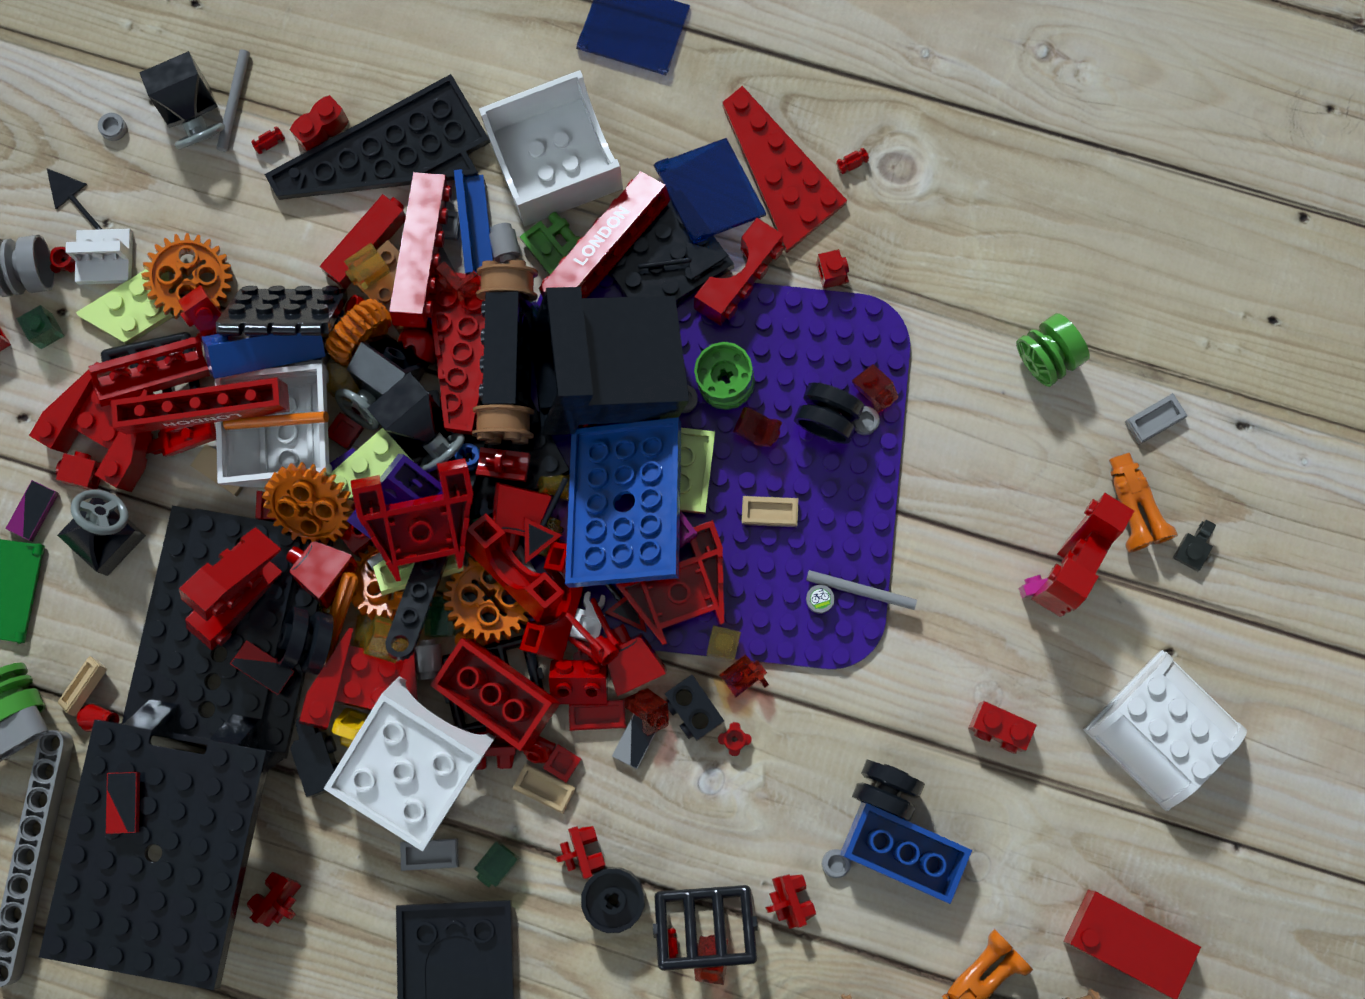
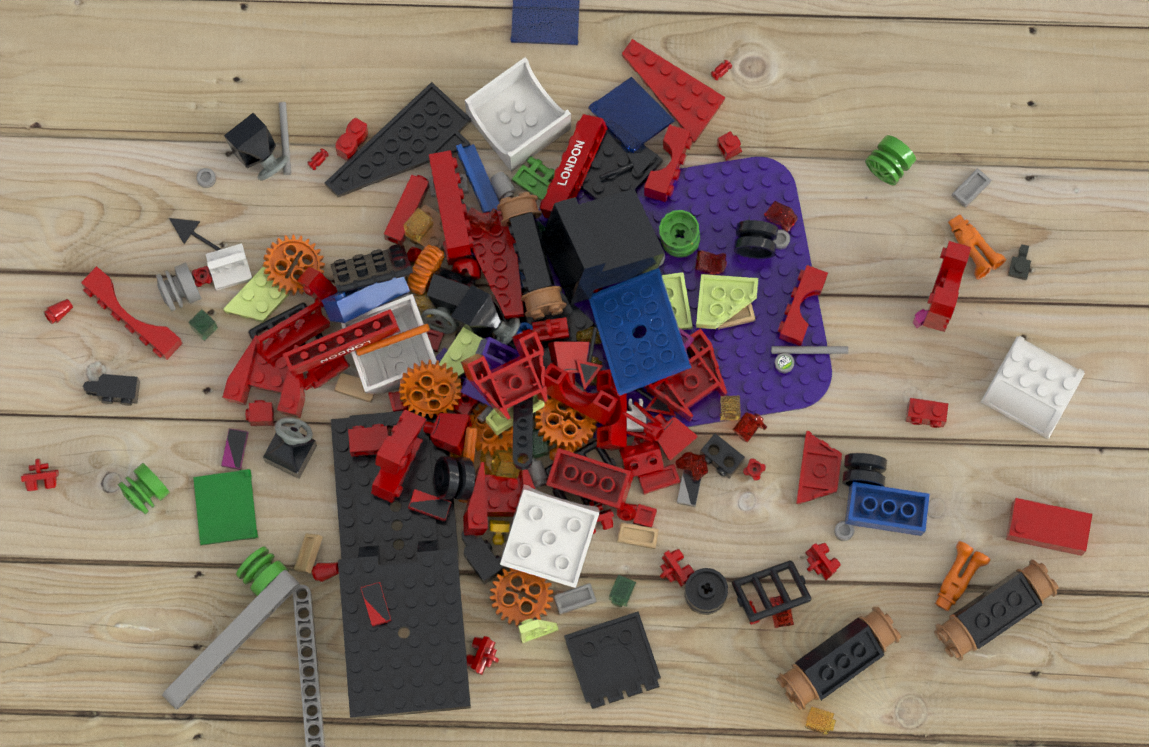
camera: 20 degrees left, 5 degrees down
(194, 550) = (367, 440): none -> red brick
(339, 850) = (513, 611): none -> orange gear
(350, 889) = (534, 629): none -> yellowish green wing
(759, 484) = (722, 298): none -> yellowish green plate
(824, 765) = (818, 470): none -> red wing
(890, 496) = (811, 284): none -> red arch

